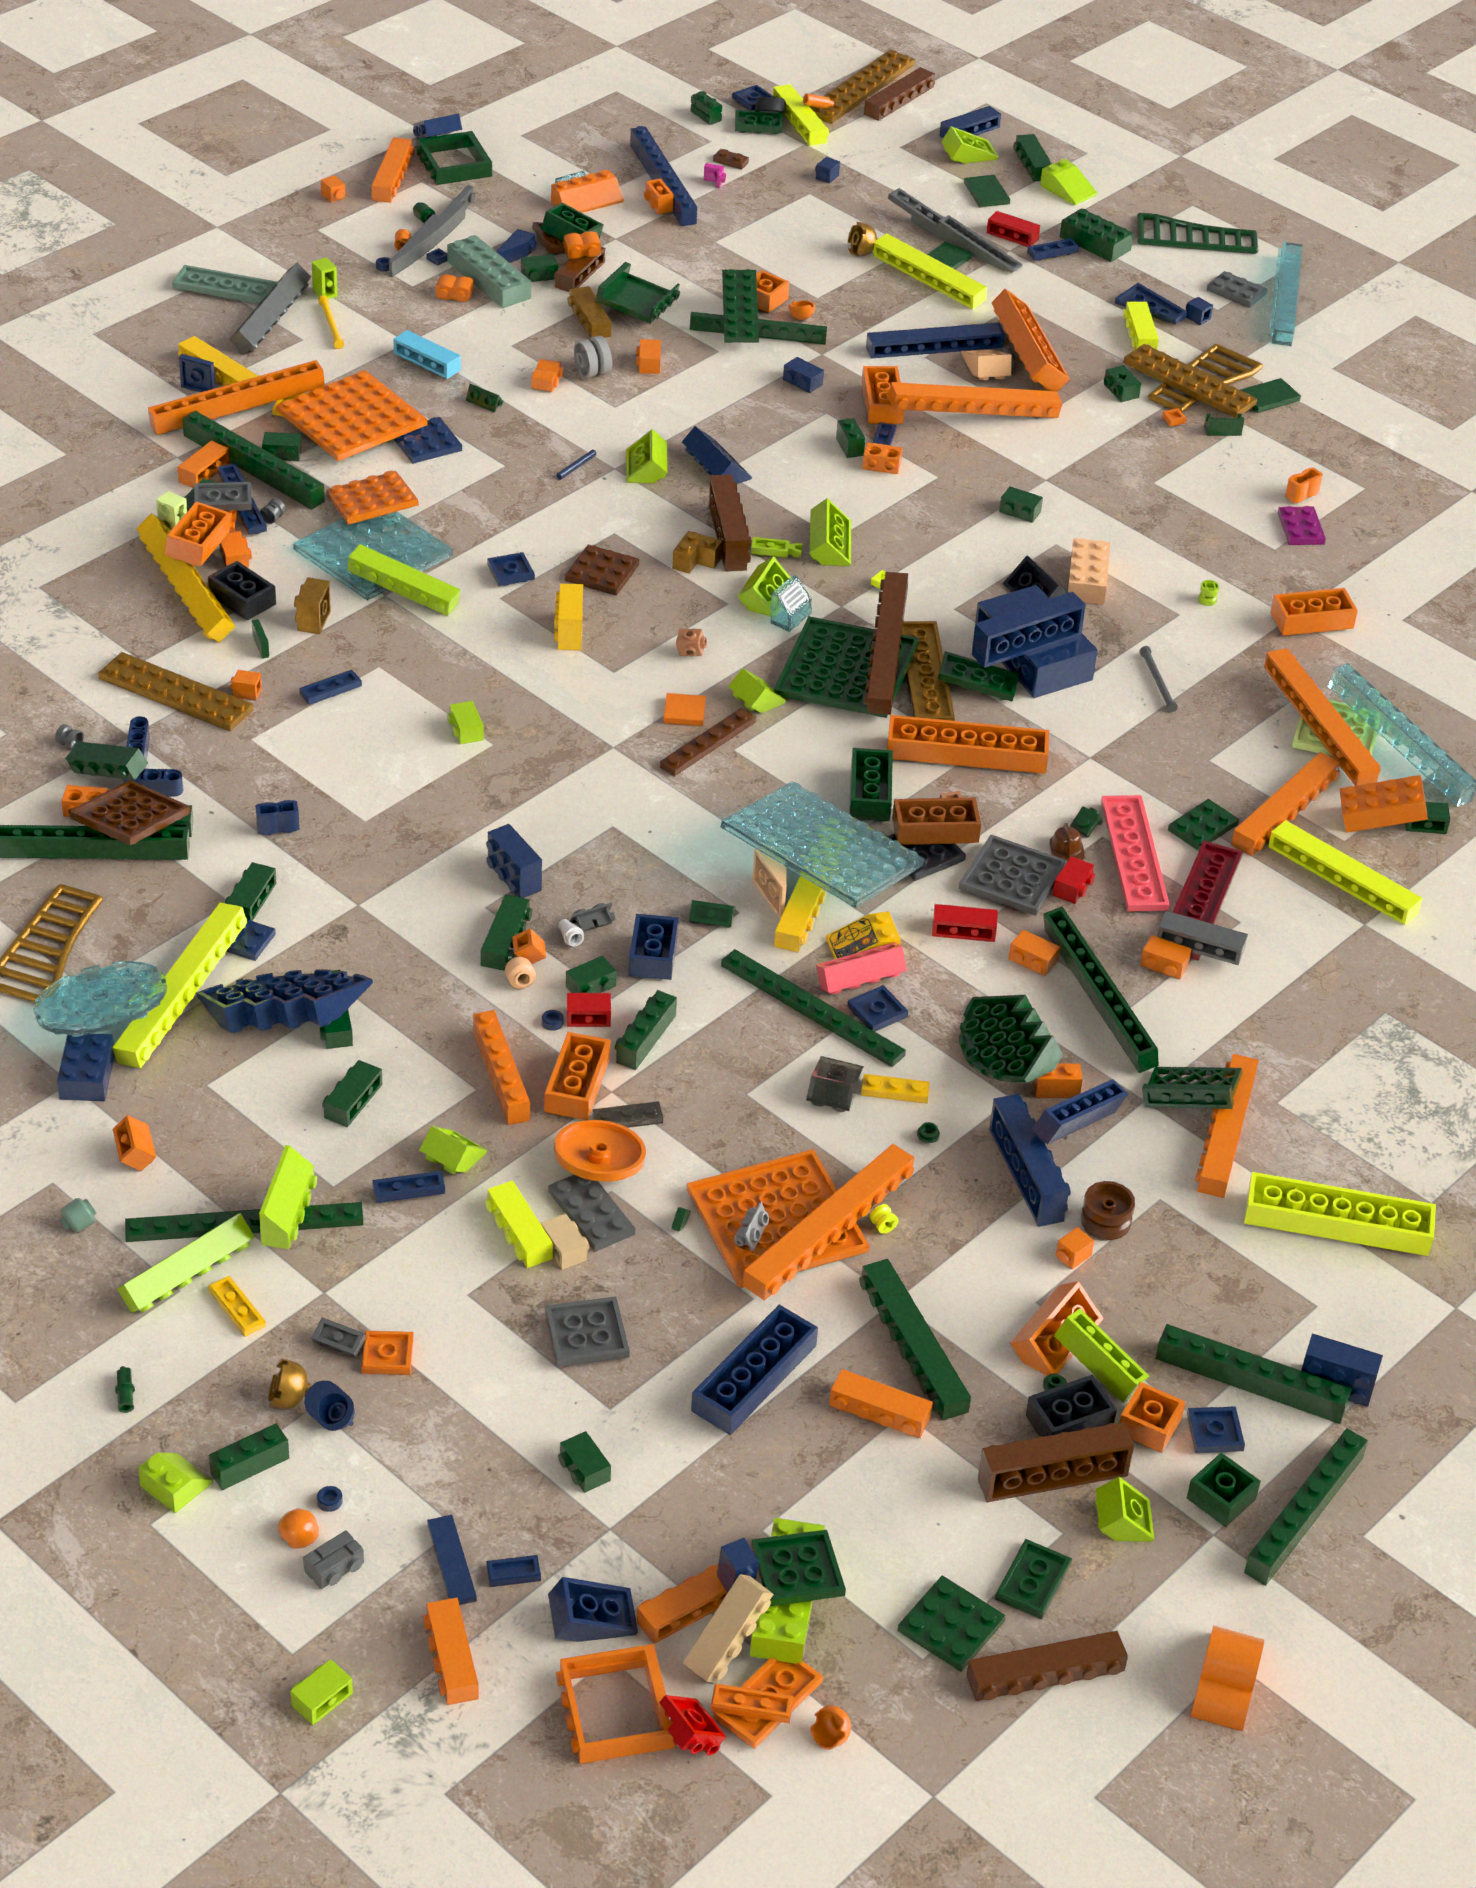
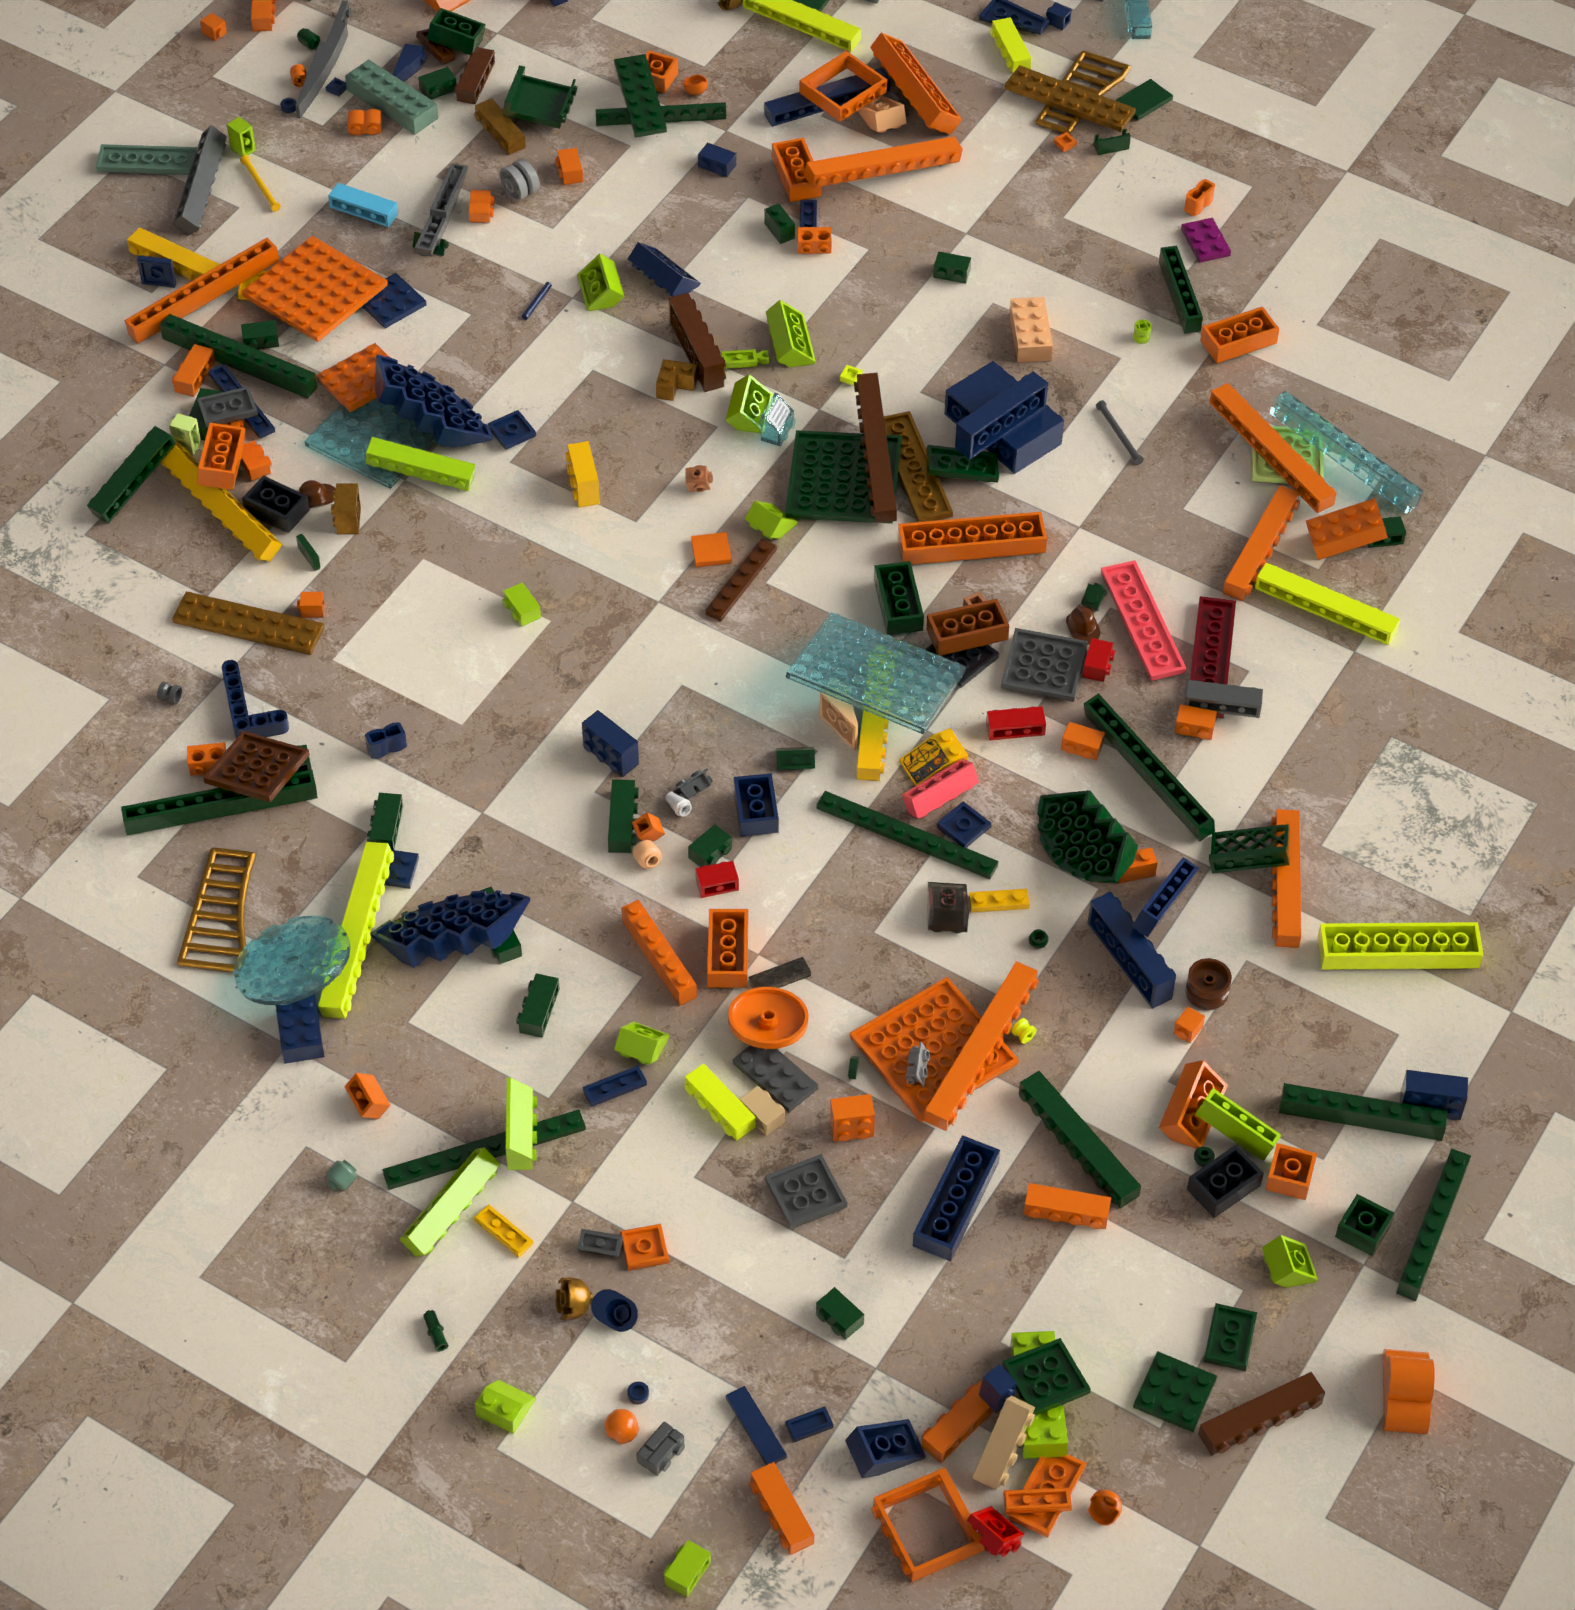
camera: 10 degrees left, 10 degrees up
(103, 538) = (131, 474): none -> dark green brick
(106, 760) = (215, 714): dark green brick -> none
(249, 1456) = (561, 1370): dark green brick -> none
(273, 511) = (275, 409): dark grey wheel -> none
(285, 588) = (317, 493): none -> reddish brown piece
(330, 687) = (387, 590): dark blue plate -> none
(430, 529) = (429, 404): none -> dark blue brick
(503, 370) = (441, 210): none -> dark grey slope
(552, 1020) = (687, 894): dark blue tile -> none
(582, 245) = (473, 53): orange brick -> none
(602, 569) = (594, 413): reddish brown plate -> none
(645, 1029) = (772, 889): dark green brick -> none
(661, 1265) = (852, 1117): none -> orange brick
(919, 322) = (844, 61): none -> orange window
(1031, 573) = (983, 348): black slope -> none
(1055, 1462) = (1224, 1230): reddish brown brick -> none
(1122, 383) = (1009, 113): dark green brick -> none
(1202, 823) = (1194, 577): dark green plate -> none
(1215, 1429) = (1344, 1169): dark blue plate -> none
(1260, 561) = (1180, 289): none -> dark green brick

